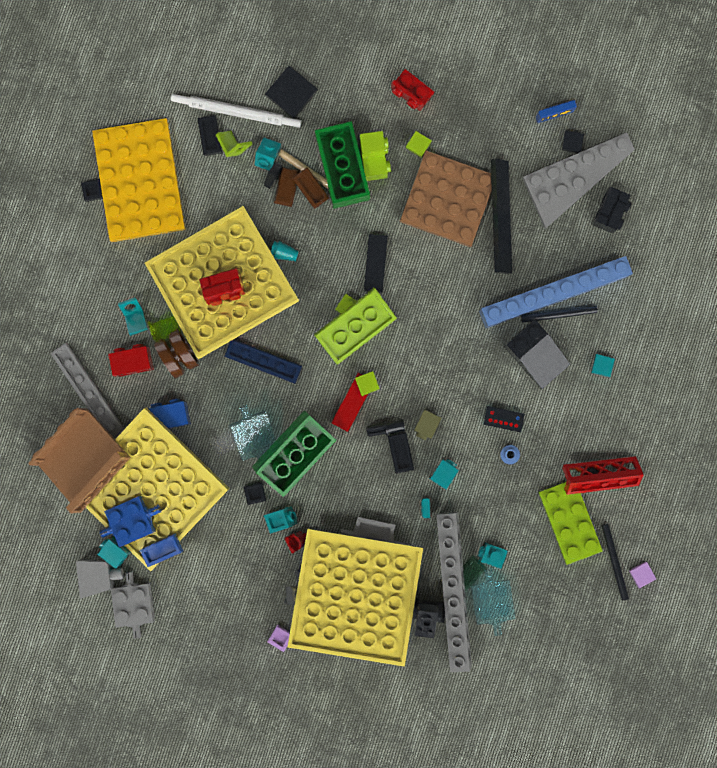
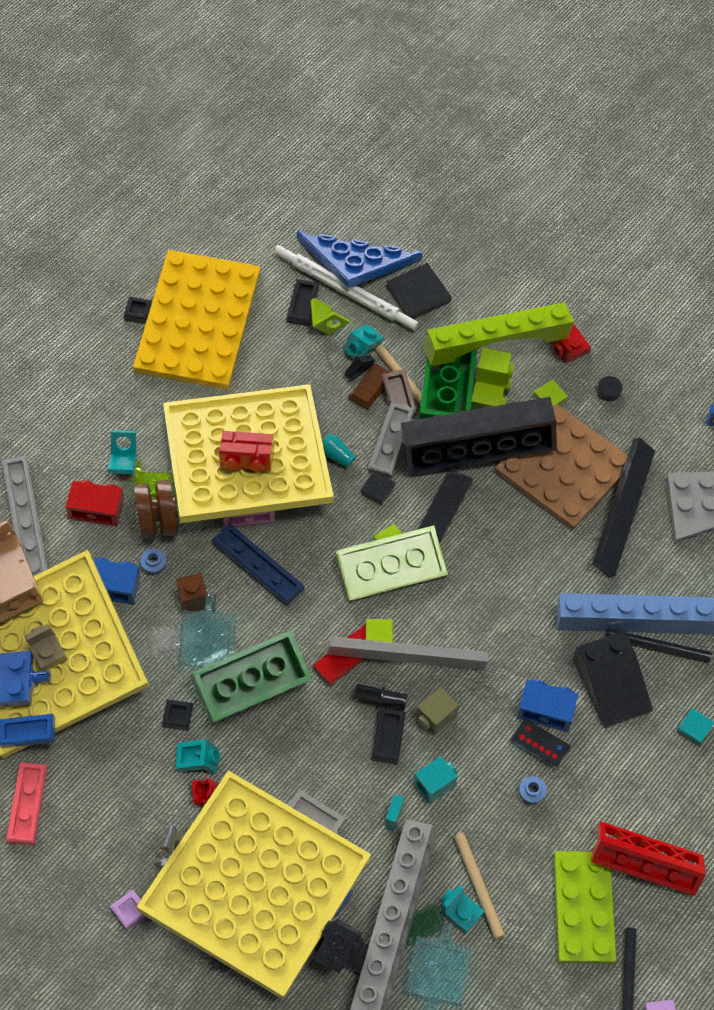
camera: 15 degrees right, 25 degrees down
(148, 490) = (46, 647): none -> dark tan bracket
(183, 594) = (27, 804): none -> coral tile
(196, 388) = (153, 567): none -> medium blue plate
(228, 404) = (191, 592): none -> reddish brown brick
(234, 84) = (356, 260): none -> blue tile
(318, 227) = (390, 440): none -> light grey tile
(323, 268) = (377, 487): none -> black tile
(345, 131) = (452, 341): none -> lime arch
(382, 205) = (479, 436): none -> black brick
(392, 392) = (407, 653): none -> light grey tile
(459, 121) = (609, 388): none -> black tile
(497, 533) = (479, 886): none -> tan bar
(499, 391) = (547, 705): none -> blue brick

